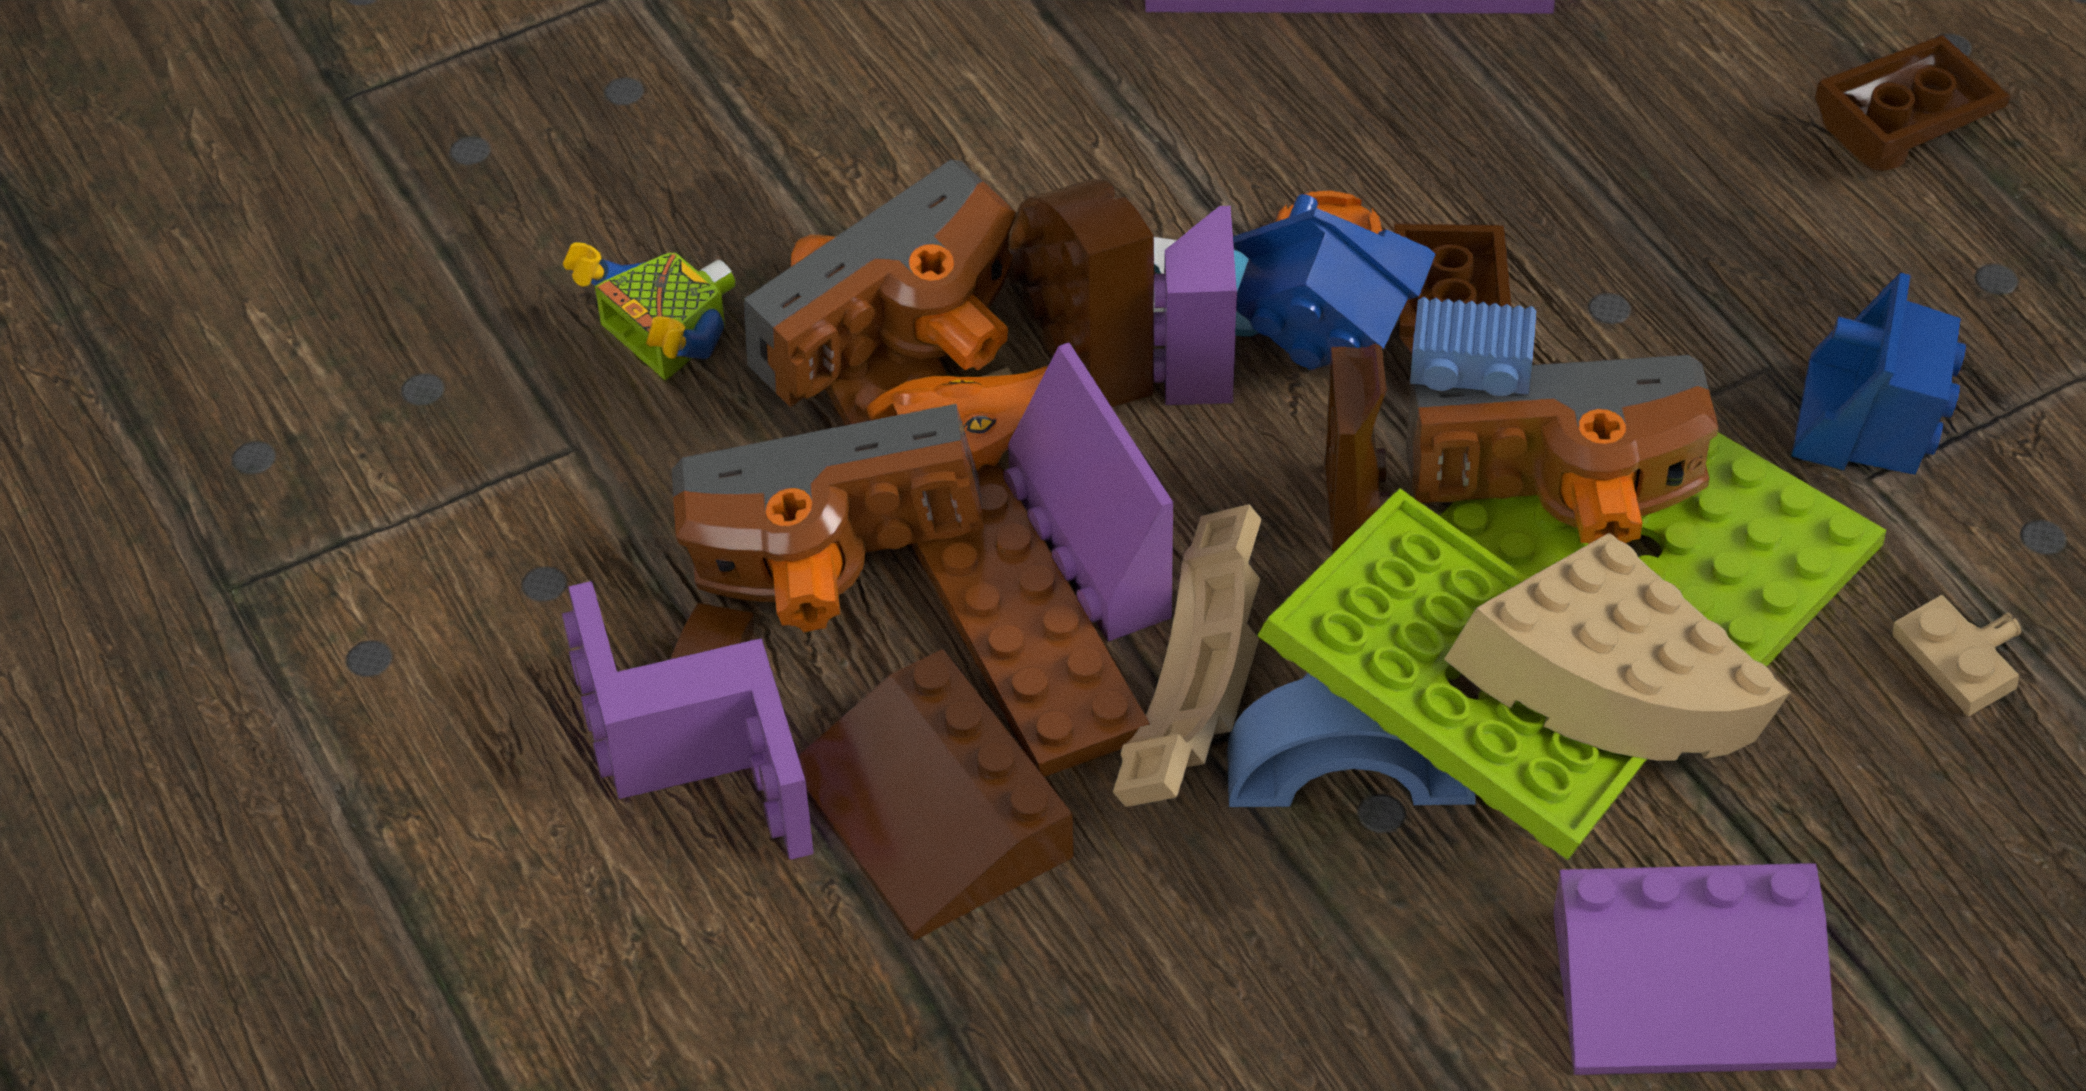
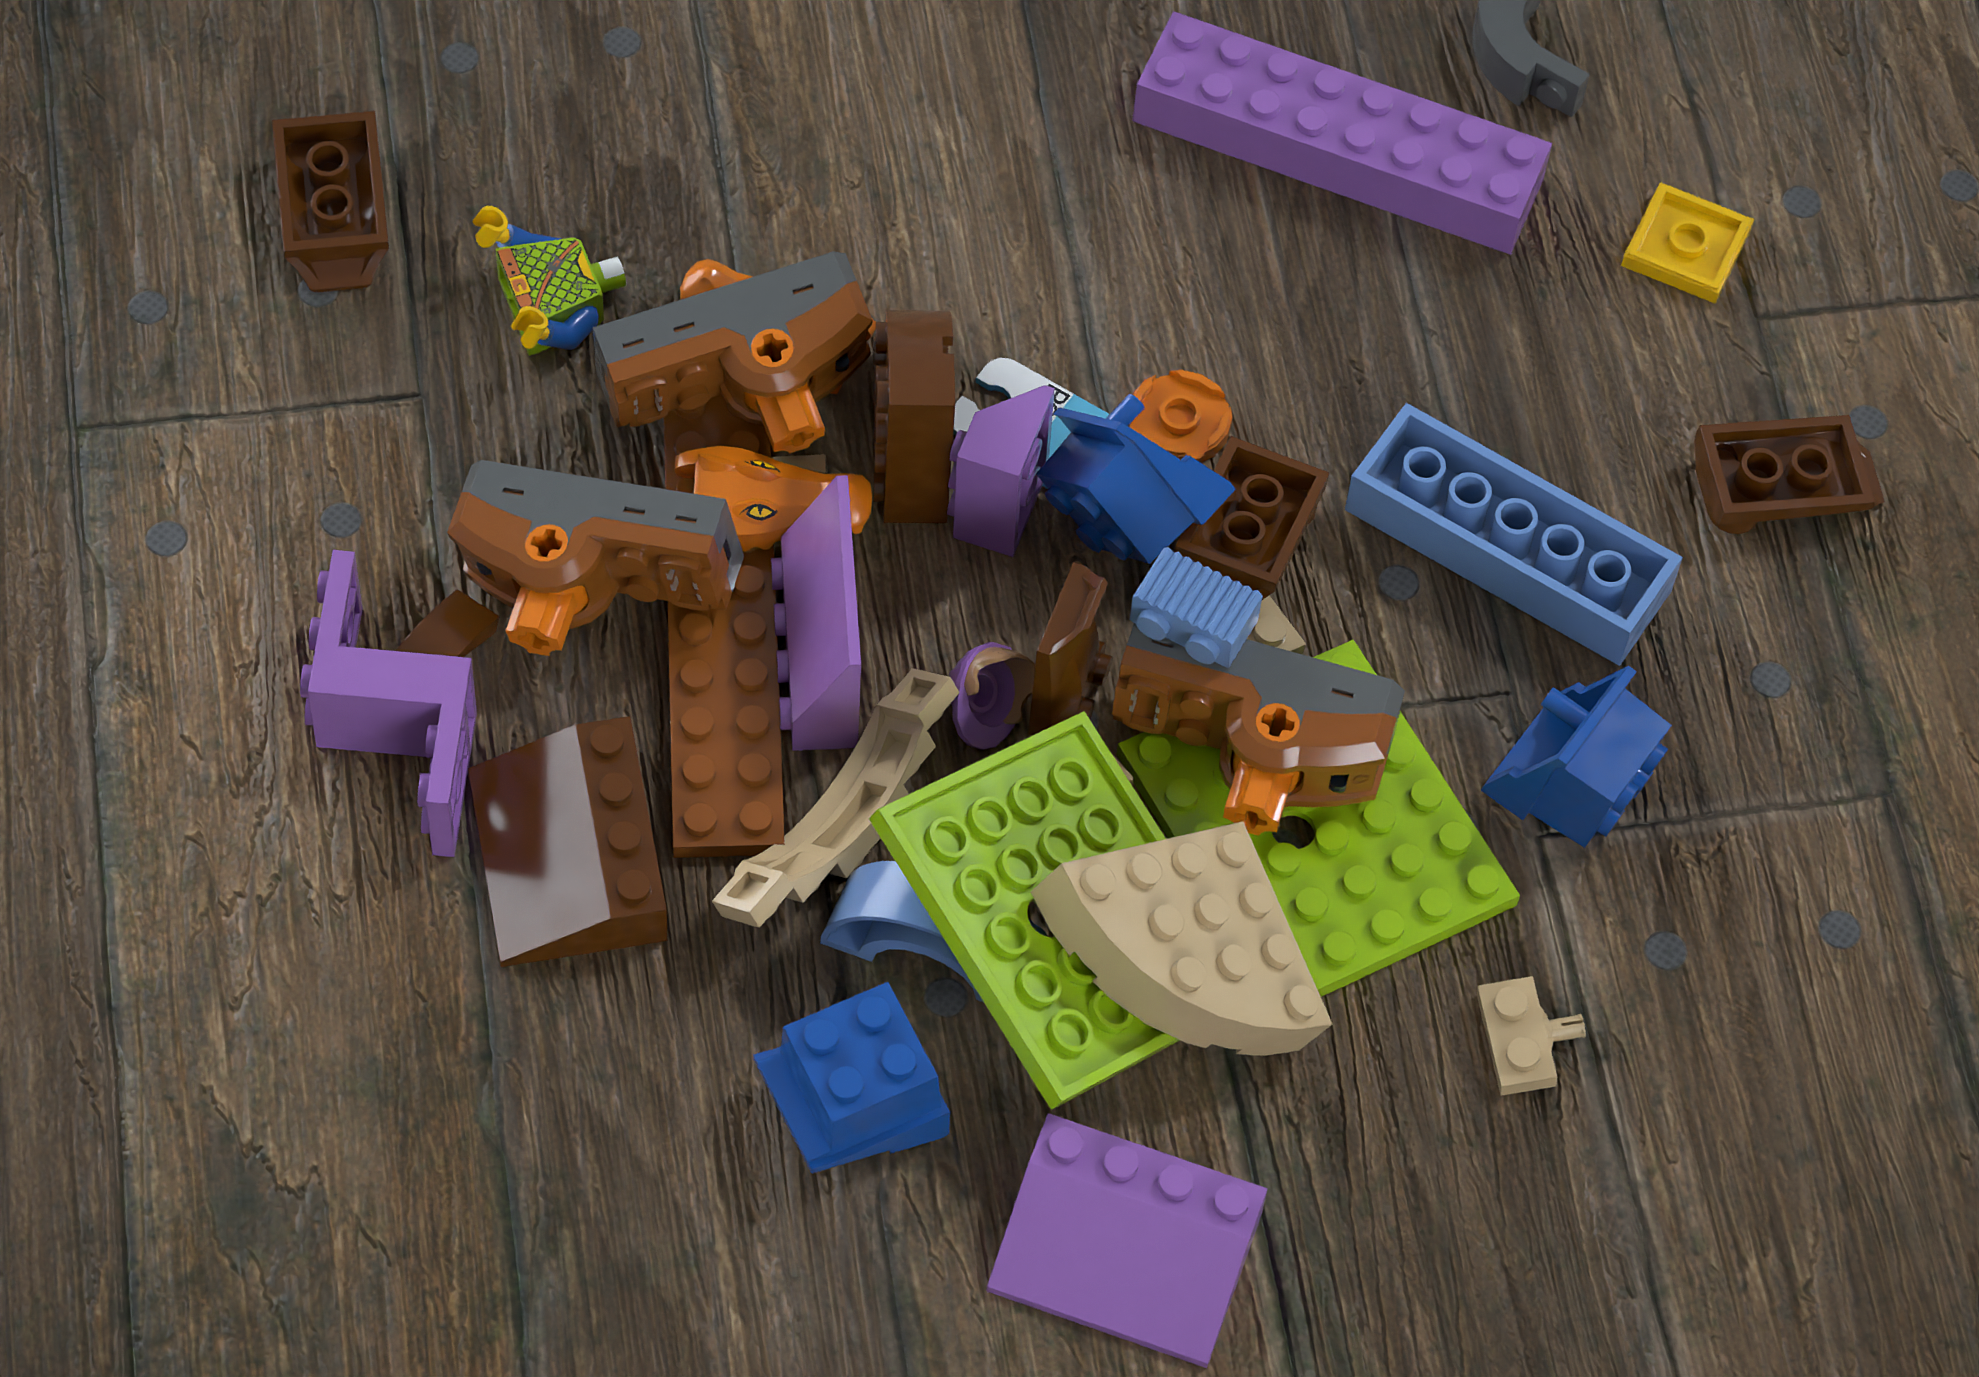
camera: 15 degrees right, 10 degrees up
(404, 298) = (331, 198): none -> reddish brown slope
(1290, 507) = (992, 693): none -> medium lavender piece
(1351, 905) = (855, 1082): none -> blue piece
(1701, 224) = (1512, 533): none -> medium blue brick

